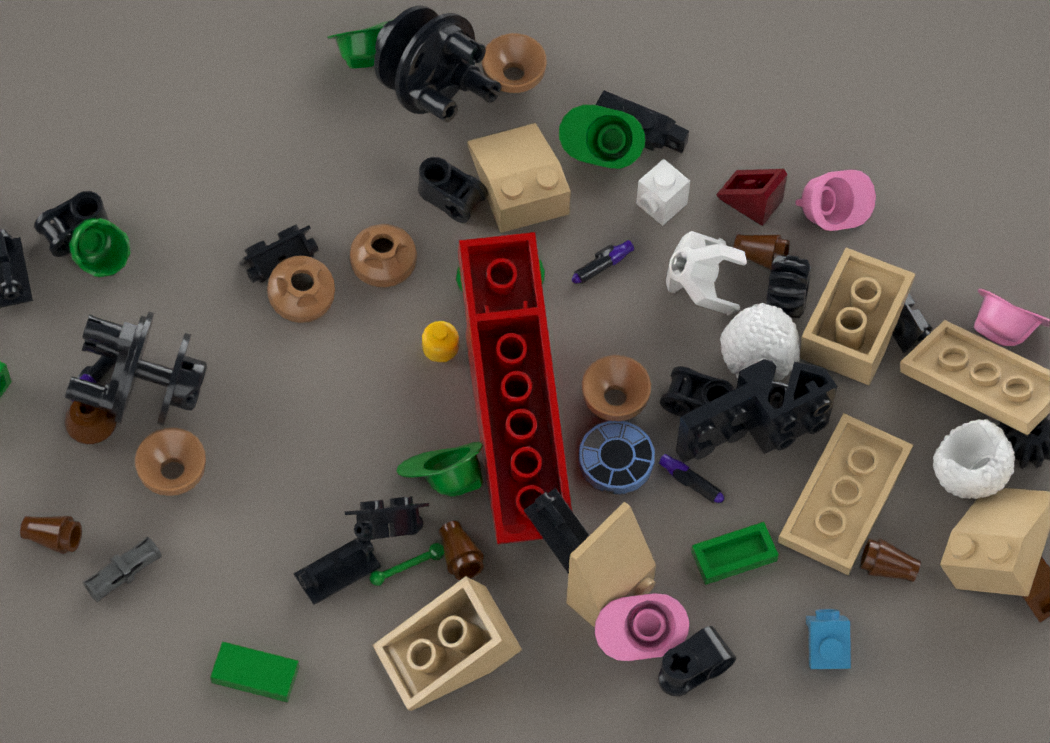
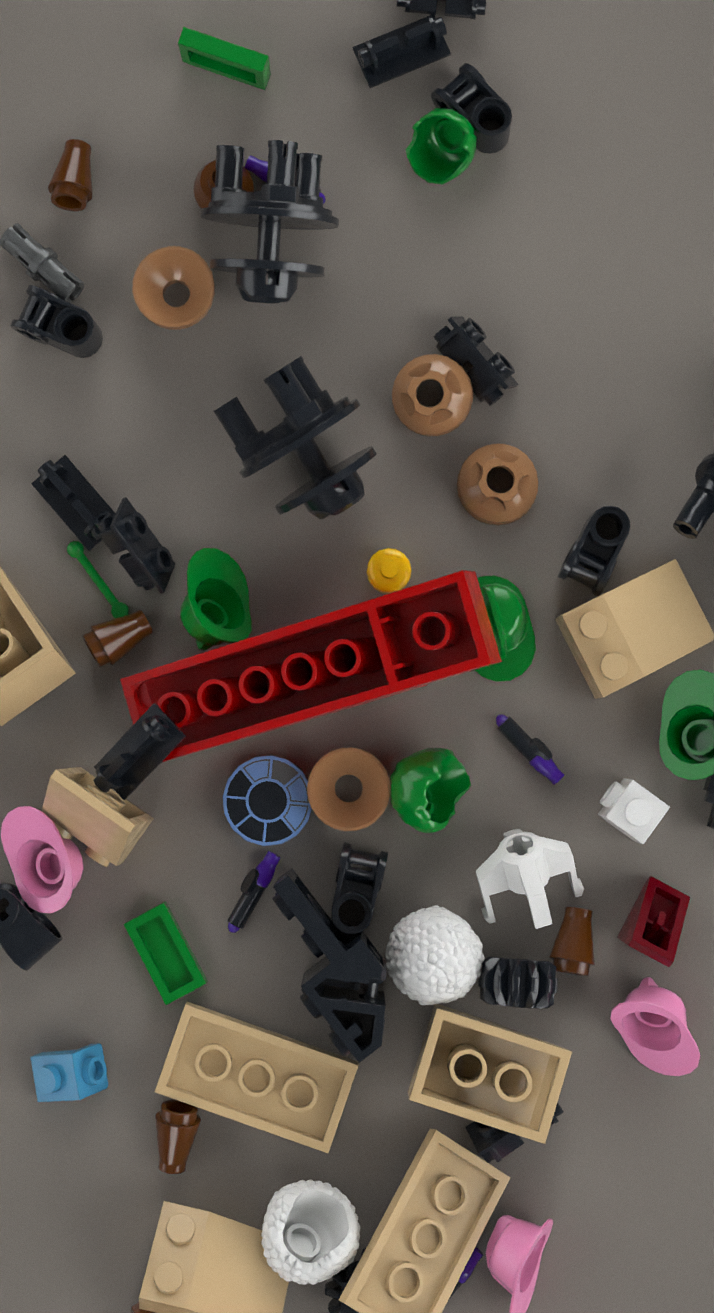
camera: 85 degrees right, 25 degrees up
(175, 566) = (51, 319): none -> black piece
(327, 369) = (307, 415): none -> black piece
(622, 331) = (428, 788): none -> green hair

